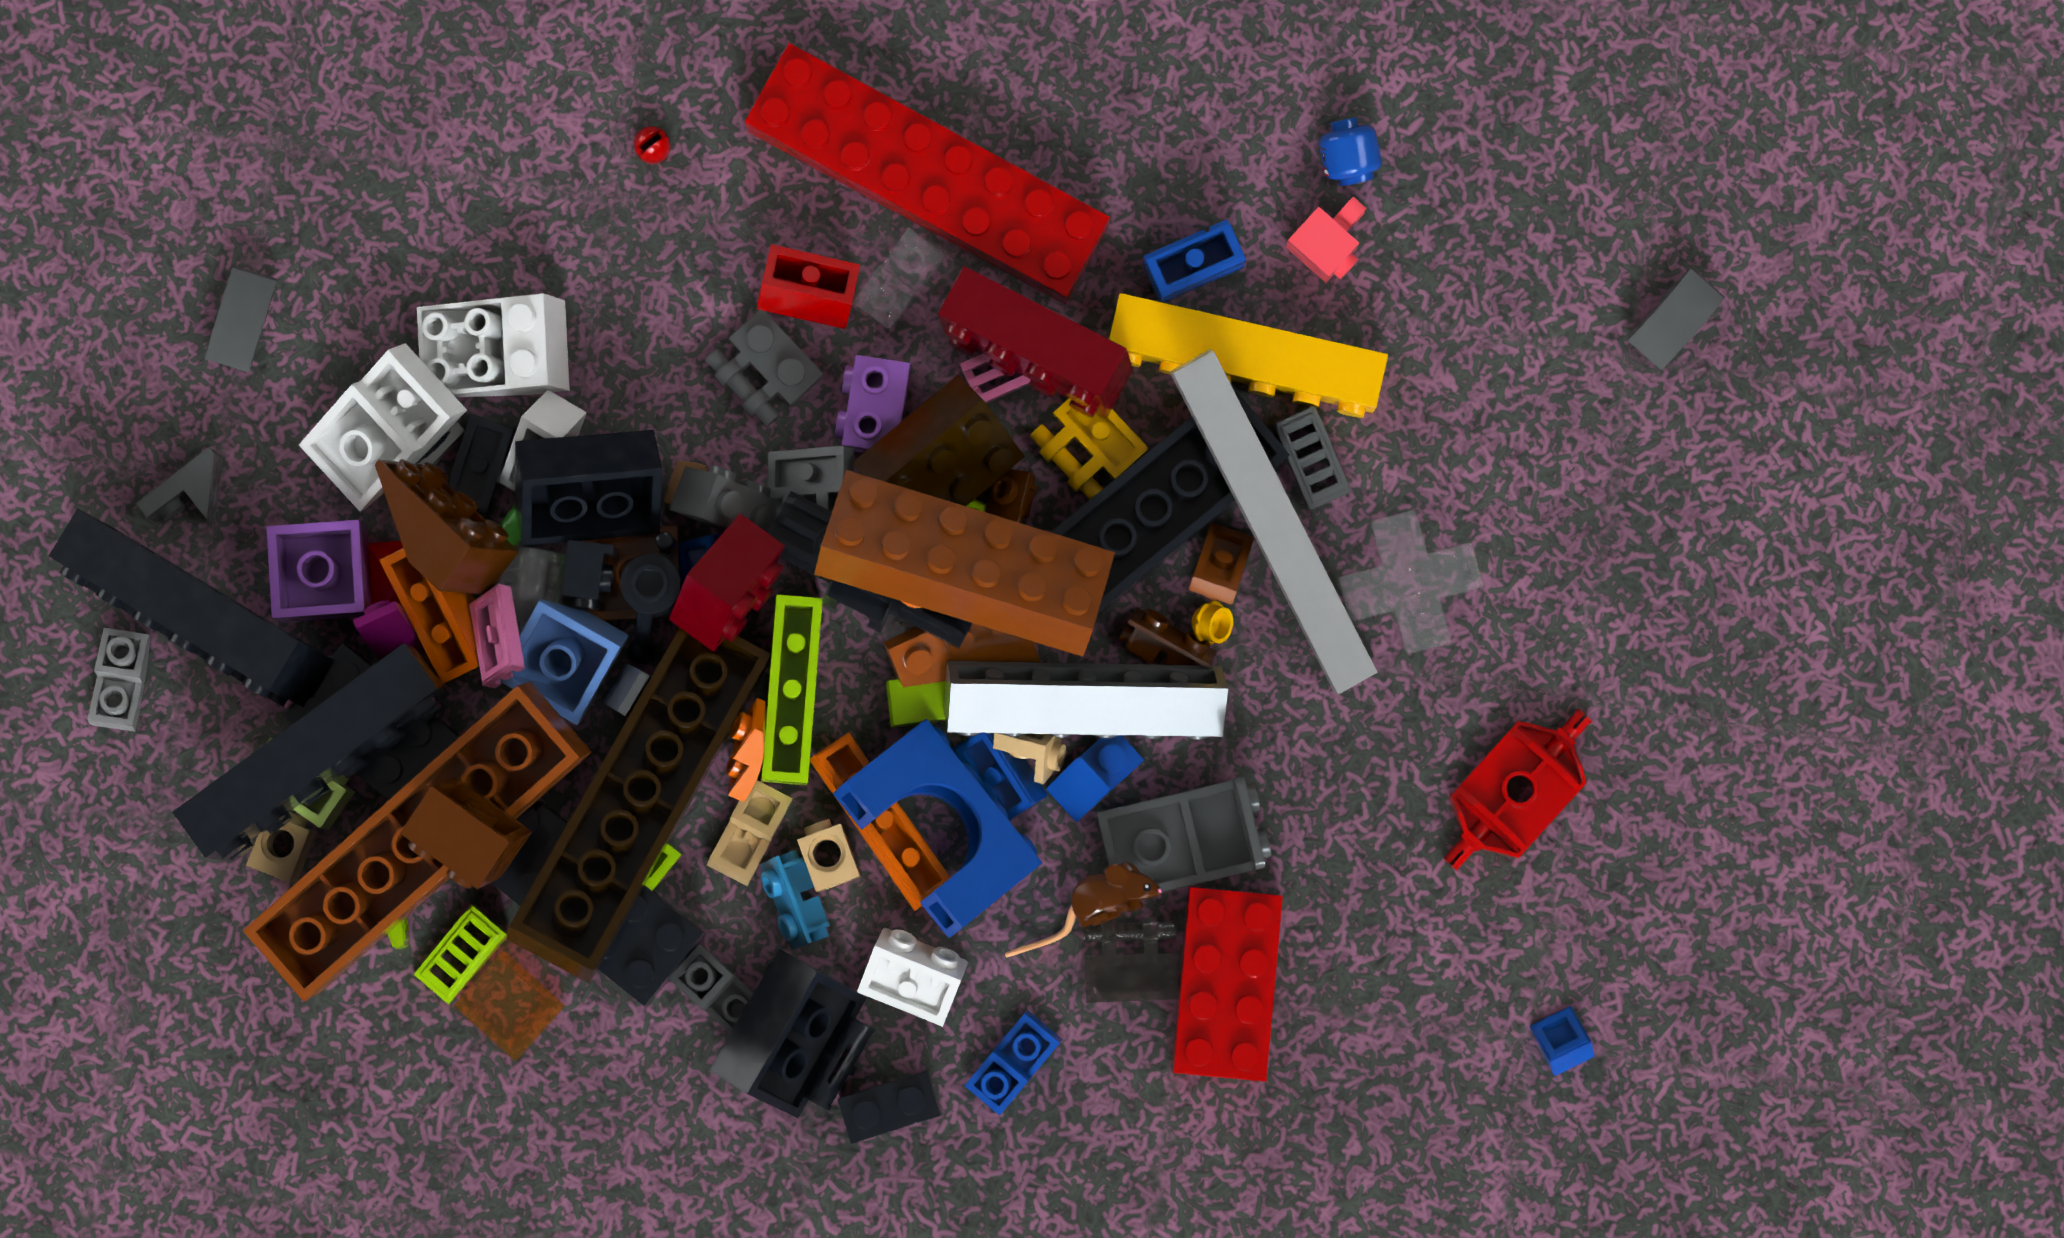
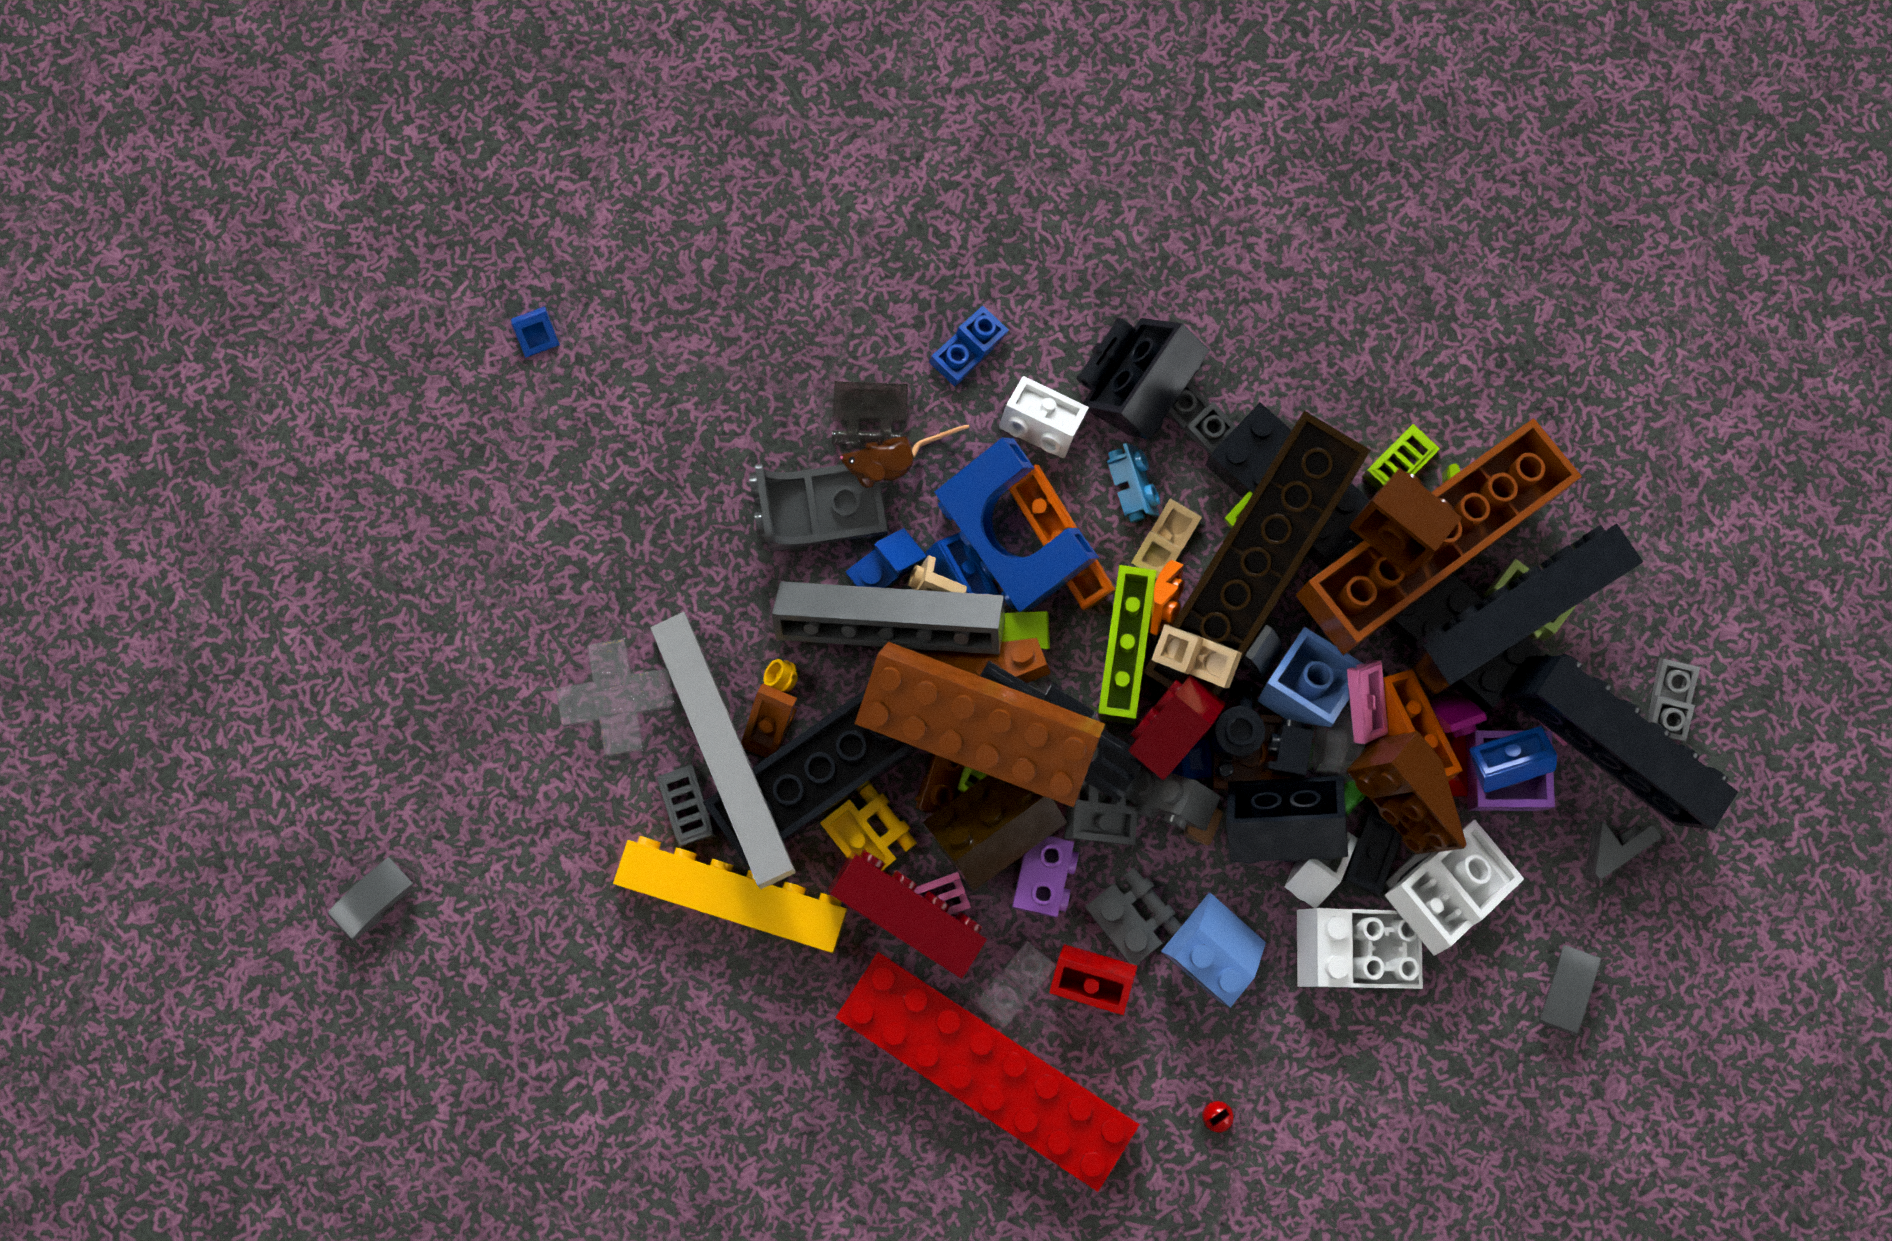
camera: 175 degrees left, 5 degrees down
(289, 867) = (1543, 537): tan brick -> none
(318, 579) = (1513, 759): none -> blue slope
(509, 1005) = (1365, 416): clear orange piece -> none
(663, 332) = (1216, 950): none -> medium blue slope
(707, 673) = (1196, 656): none -> tan slope
(843, 870) = (1105, 497): tan brick -> none
(889, 1106) = (1069, 316): black brick -> none
(1155, 634) = (829, 672): reddish brown hinge -> none
(1194, 261) = (767, 976): blue brick -> none
(1227, 984) = (794, 389): red brick -> none
(1325, 242) = (656, 986): coral brick -> none
(1350, 152) = (627, 1062): blue head -> none
(1490, 816) = (537, 553): red plate -> none

